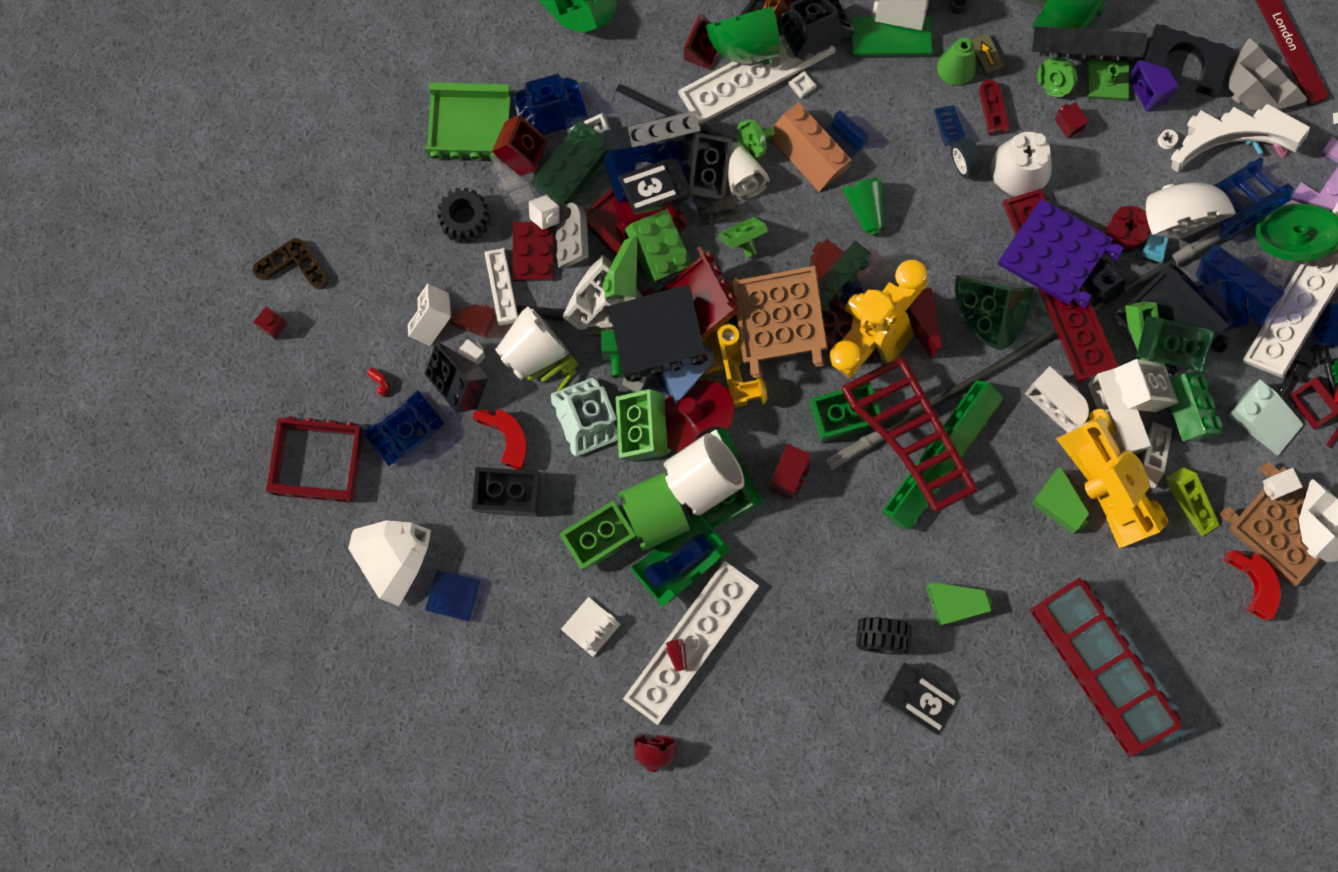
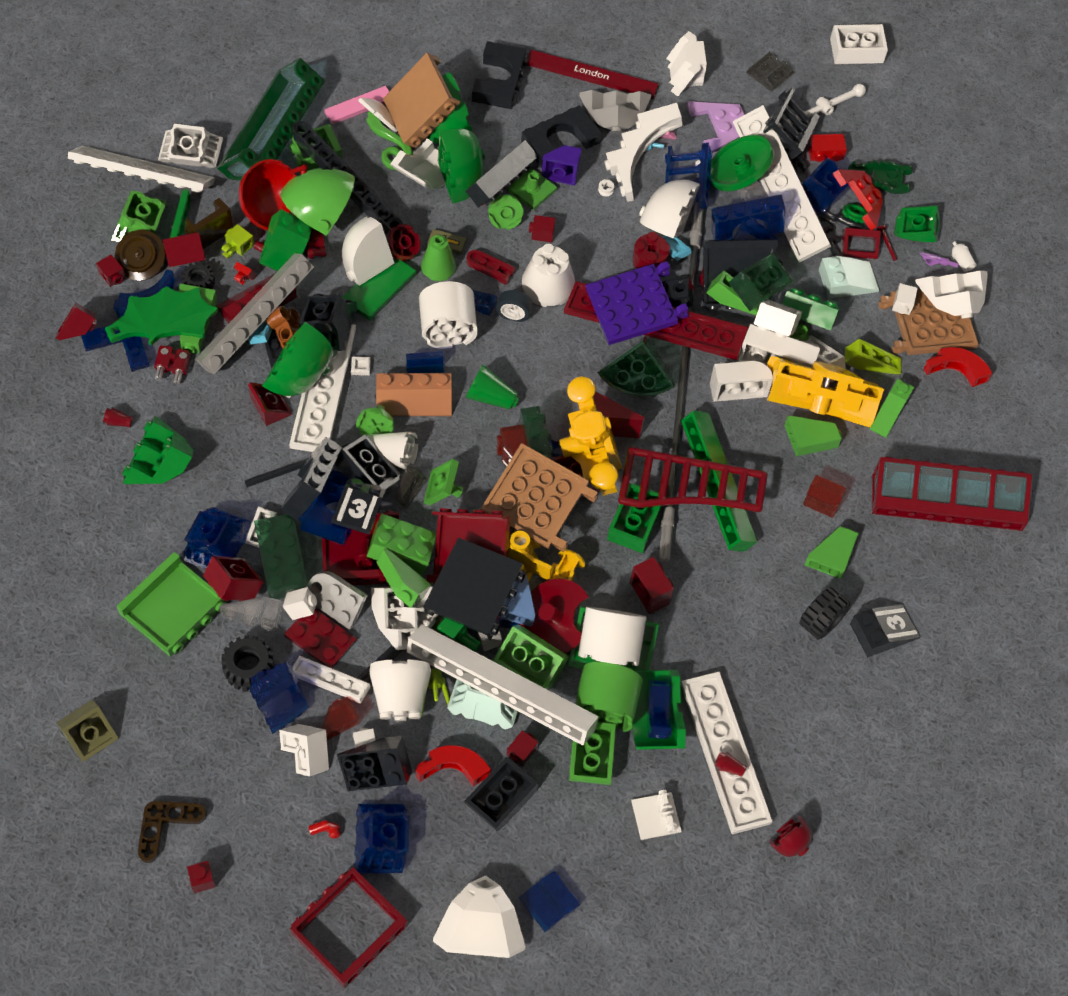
camera: 60 degrees left, 15 degrees down
(319, 147) = (87, 730): none -> olive slope
(450, 259) = (278, 696): none -> clear blue slope
(563, 478) = (522, 748): none -> dark red brick
(592, 421) = (502, 684): none -> white brick
(904, 111) = (447, 314): none -> white brick
(947, 20) = (403, 242): none -> dark red cylinder
(1006, 556) = (824, 496): none -> clear red piece
(1154, 553) = (891, 408): none -> bright green slope
(1169, 417) = (803, 330): none -> bright green plate

